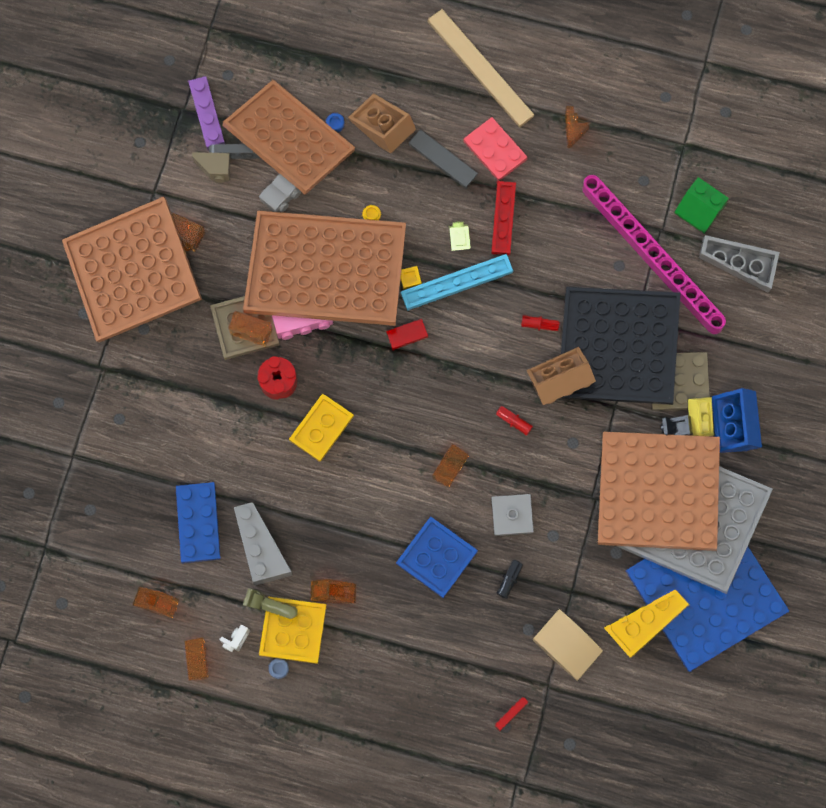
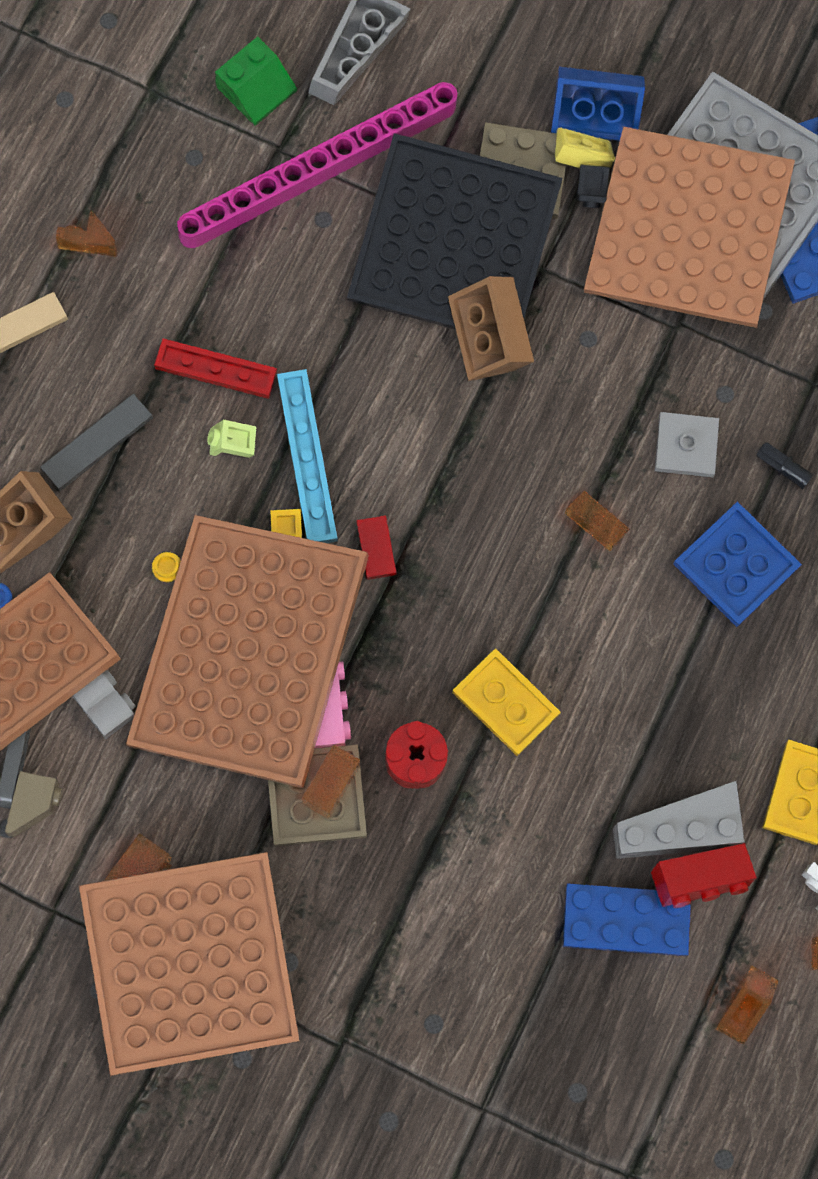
camera: 90 degrees left, 0 degrees up
(229, 561) = (703, 876): none -> red brick
(256, 599) = (769, 842): olive piece -> none
(333, 591) = (769, 727): clear orange slope -> none
(495, 149) = (97, 361): coral plate -> none
(514, 420) = (543, 413): red axle -> none
(540, 323) = (396, 347): red axle -> none

